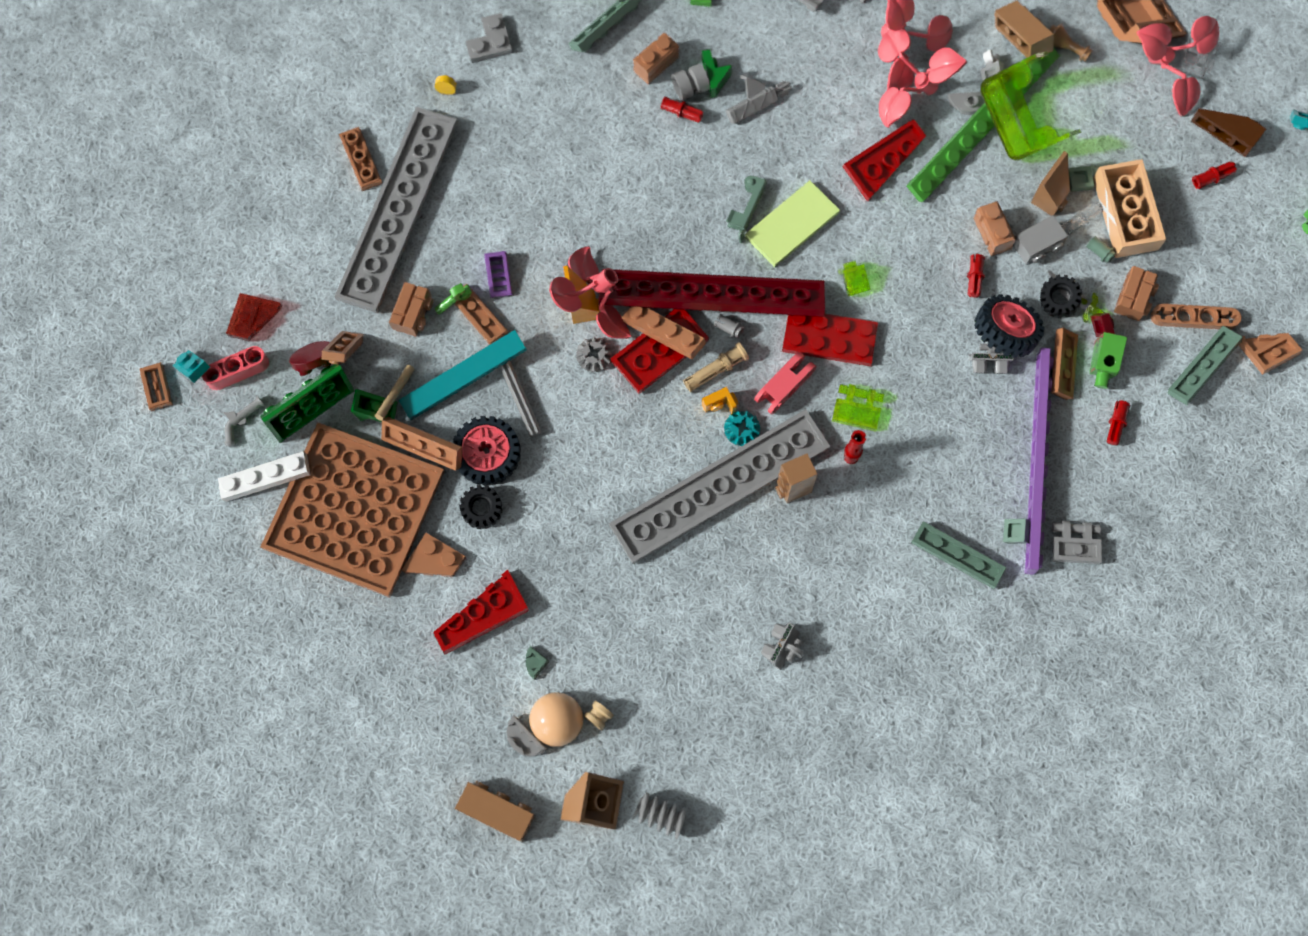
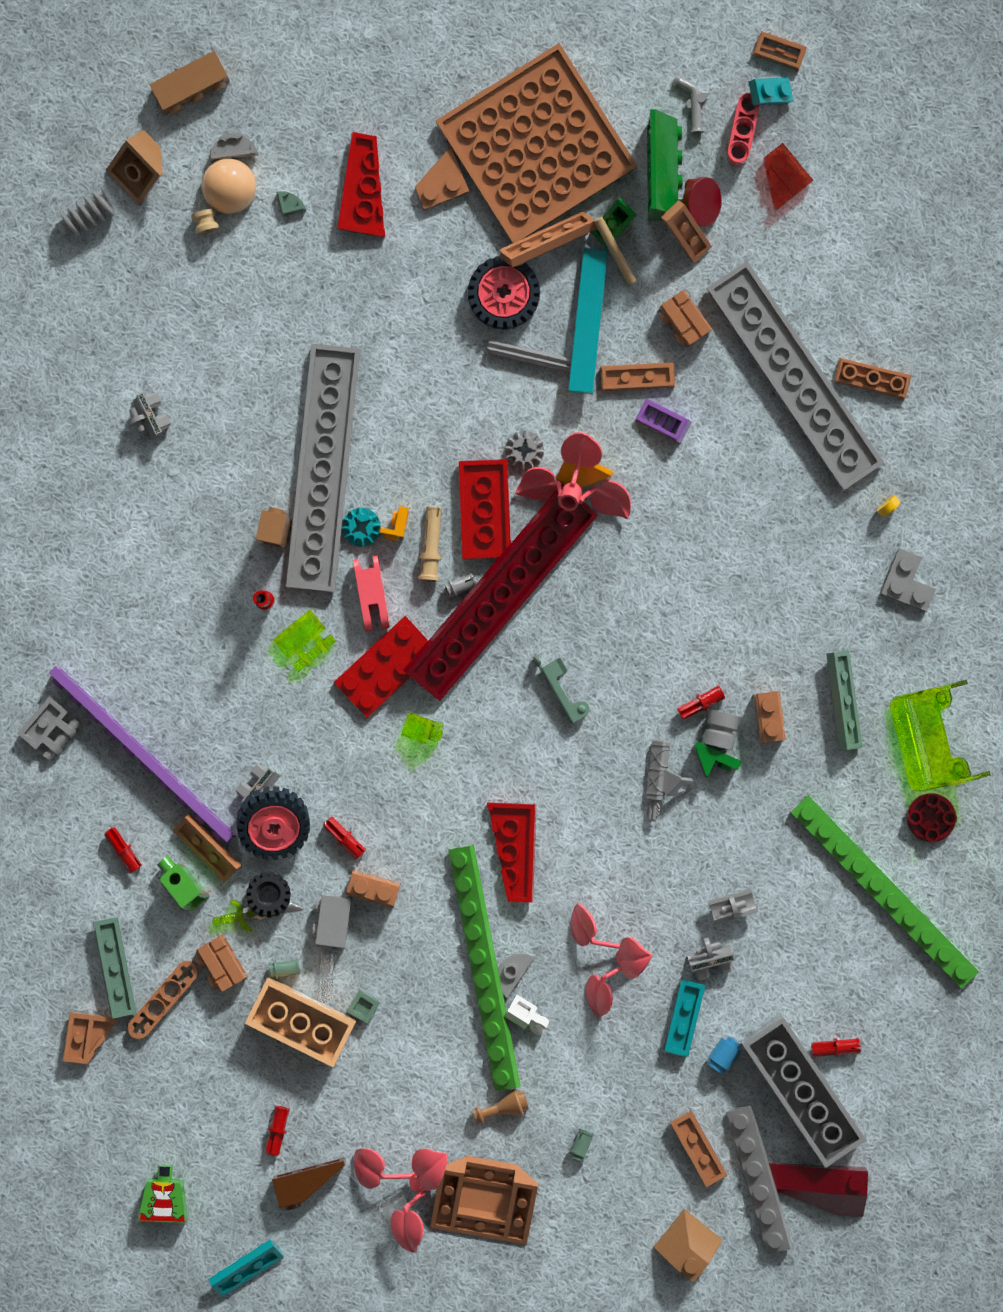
camera: 125 degrees right, 15 degrees up
(264, 476) = (621, 88): white plate -> none
(457, 294) = (666, 362): bright green bar -> none
(474, 495) = (450, 239): black tyre -> none
(664, 331) = (492, 521): nougat plate -> none
(792, 223) = (516, 717): yellowish green tile -> none
(942, 65) = (550, 952): coral plant -> none
(958, 555) = (114, 621): sand green plate -> none
(1012, 115) = (460, 992): clear neon green windscreen -> none
(1016, 531) = (96, 685): plate -> none
(1023, 29) = (539, 1072): medium nougat brick -> none
(1054, 187) = (369, 972): medium nougat slope -> none
(1102, 323) = (214, 909): dark red plate -> none

